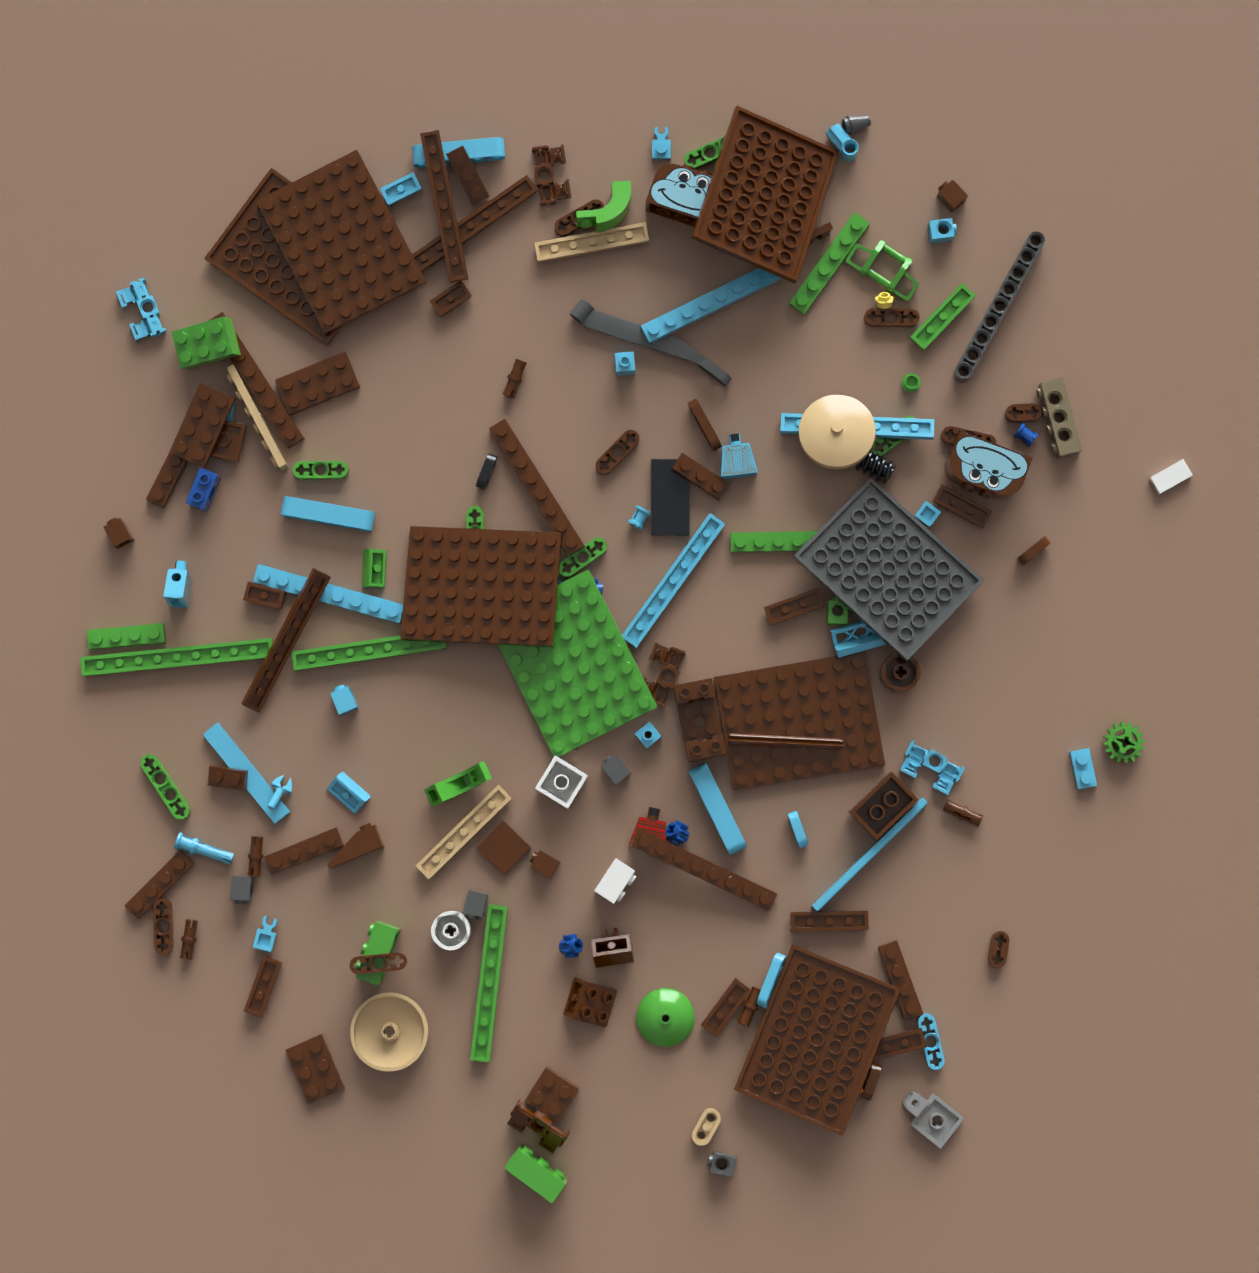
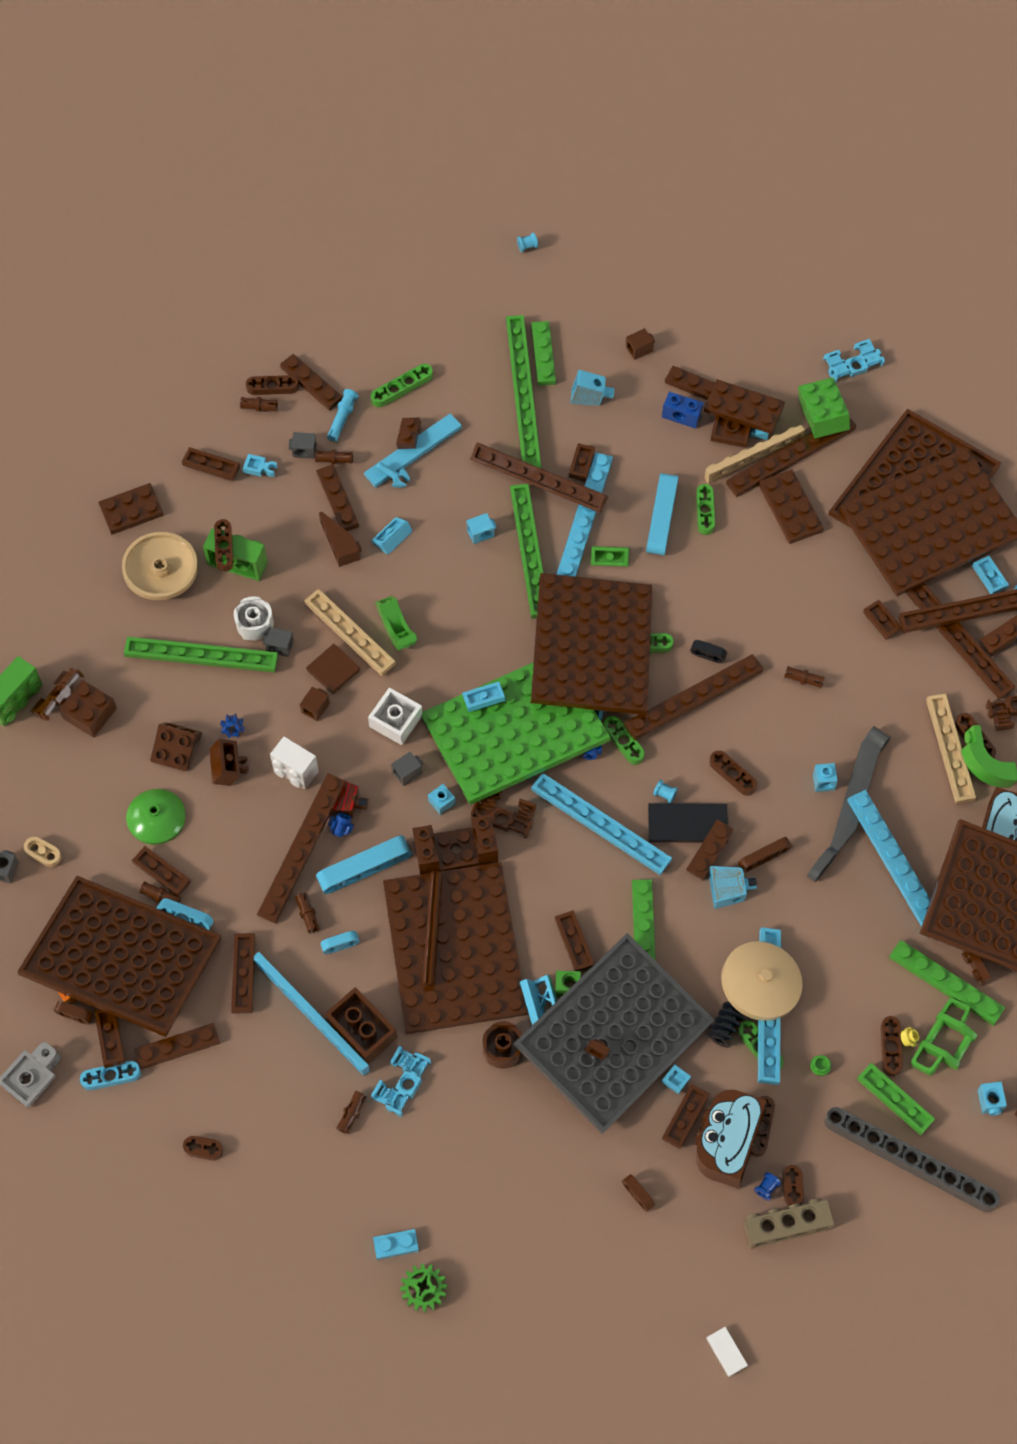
camera: 90 degrees right, 20 degrees down
(543, 694) = (483, 696): none -> medium azure plate
(767, 862) = (307, 913): none -> reddish brown pin
(910, 583) = (597, 1048): none -> reddish brown plate

